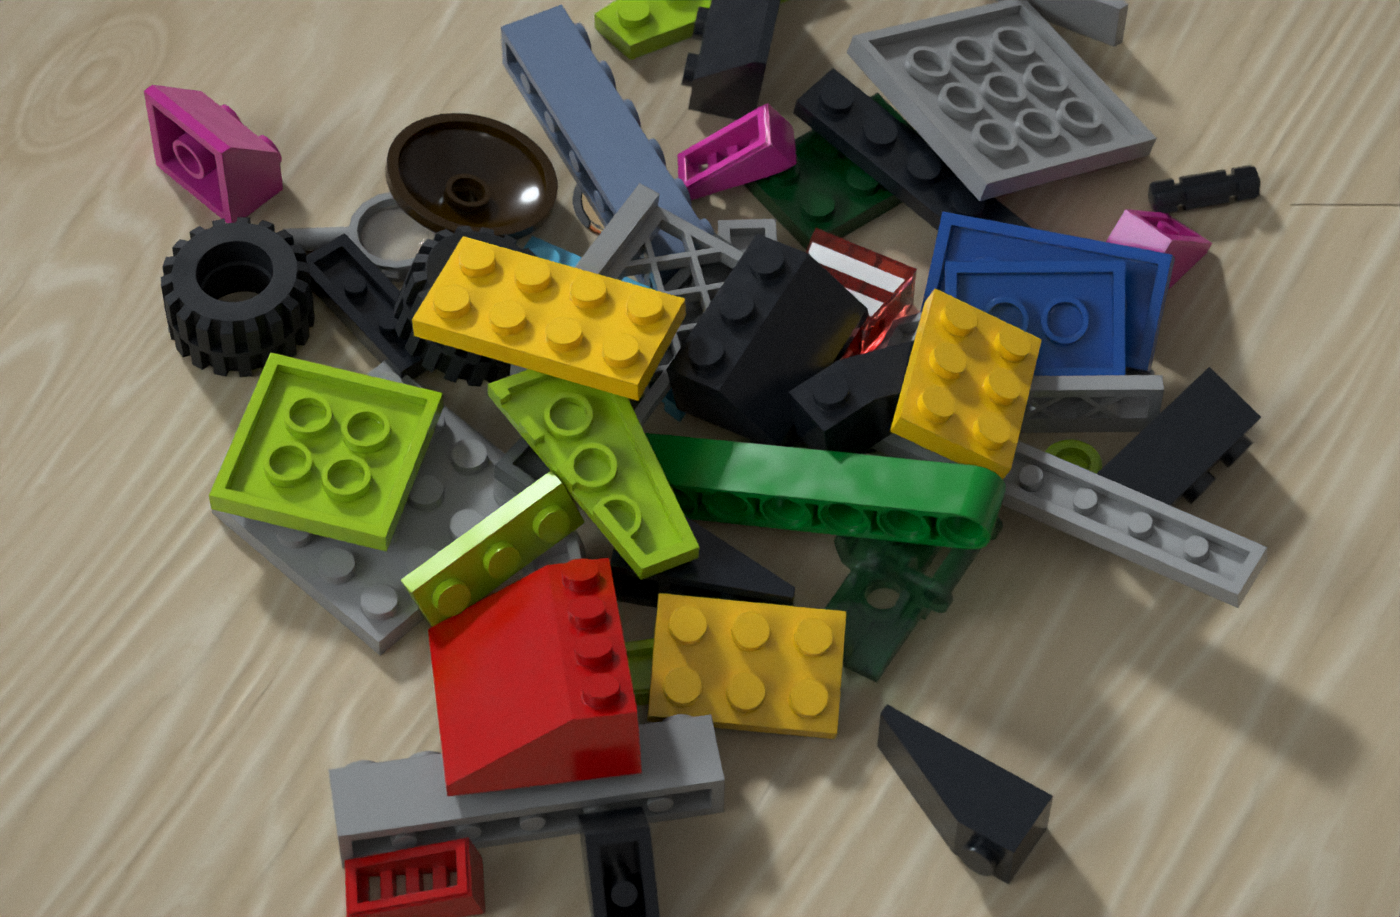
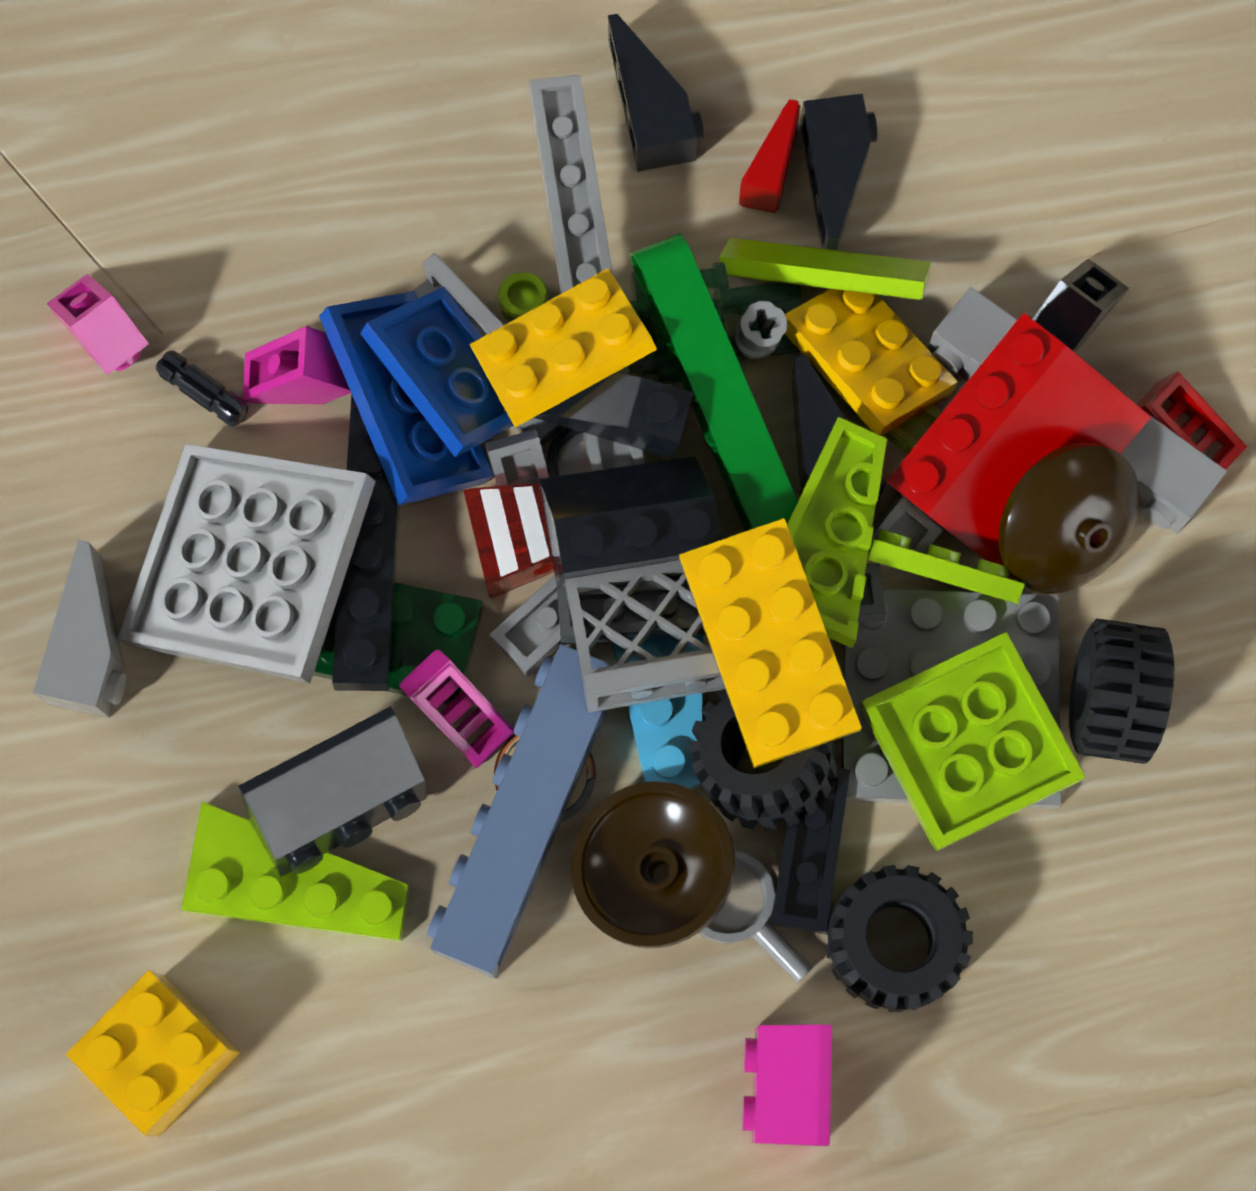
camera: 130 degrees left, 20 degrees up
(246, 575) = (1121, 691): none -> black tyre
(426, 665) = (1069, 517): none -> dark brown dish
(841, 578) = (769, 318): none -> light grey bush
(857, 692) = (826, 268): none -> lime tile
(1014, 742) = (766, 175): none -> red slope
(1184, 698) = (654, 103): none -> black slope
(1185, 442) = (473, 230): black brick -> none
(1333, 148) = (99, 324): none -> slope

